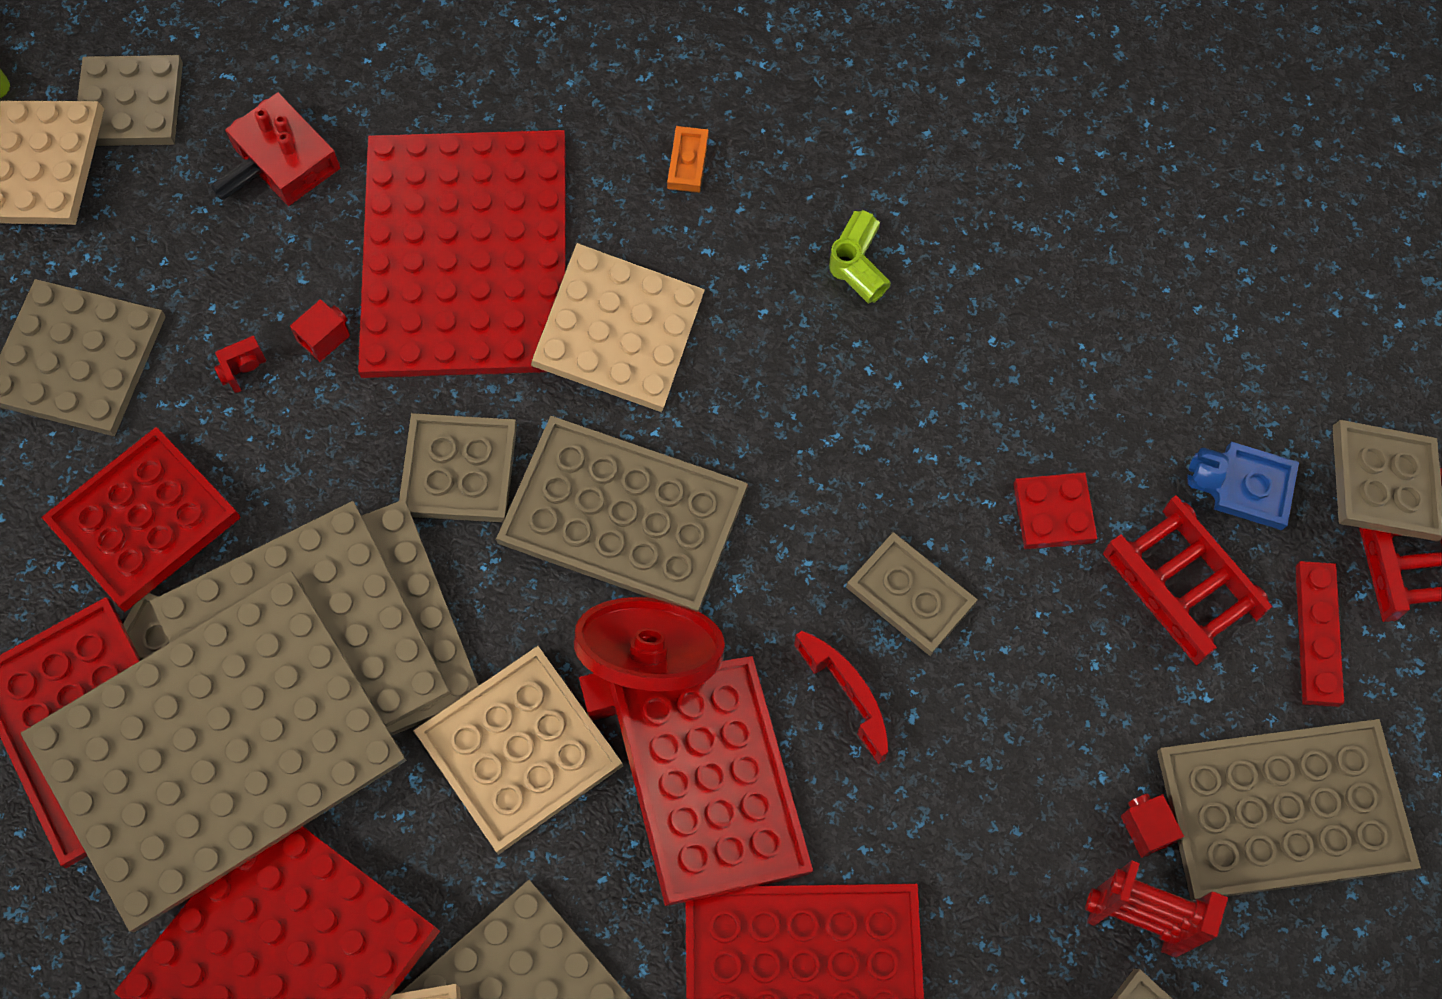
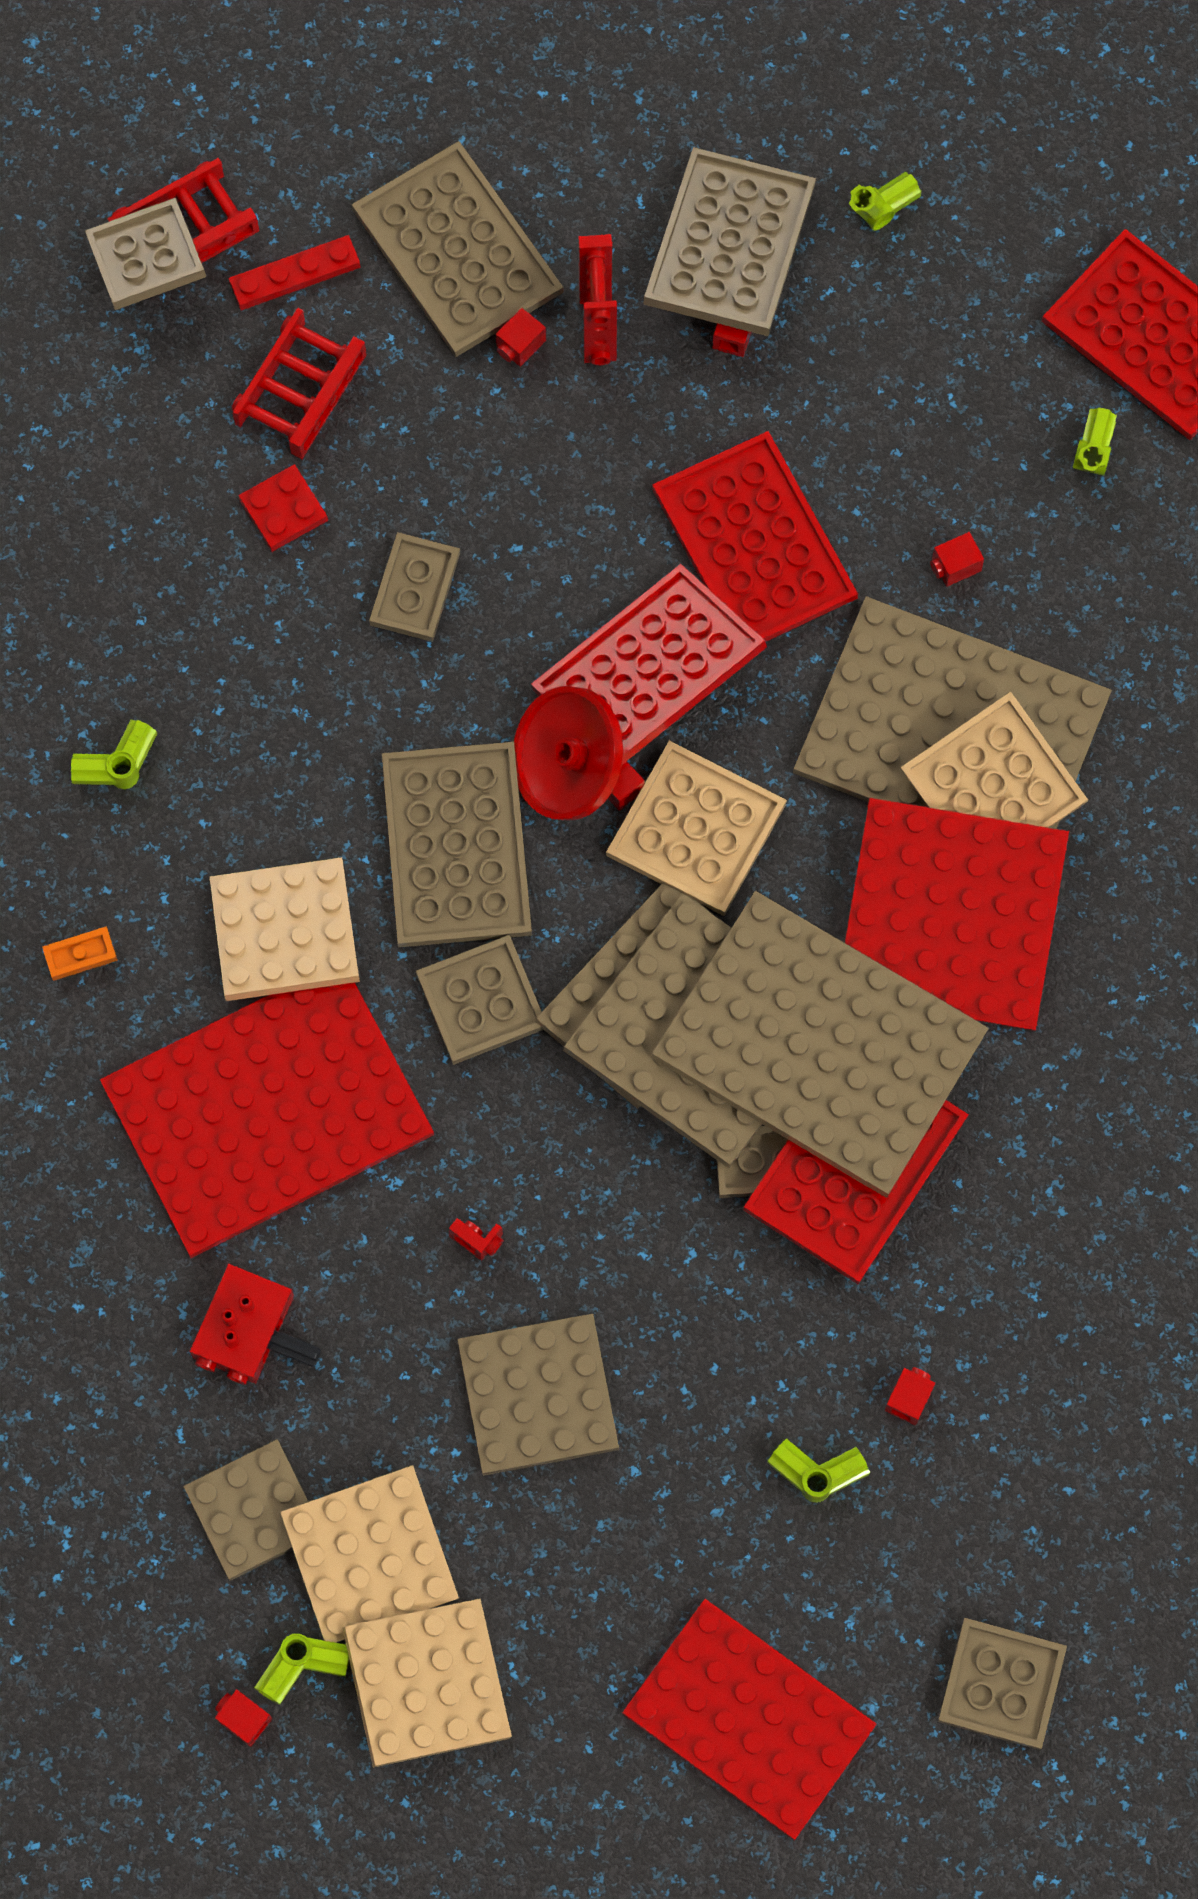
camera: 115 degrees left, 5 degrees up
(141, 518) = (659, 1231): red plate -> none
(321, 329) = (409, 1184): red brick -> none
(821, 655) = (544, 567): red slope -> none
(1246, 483) = (188, 367): blue plate -> none

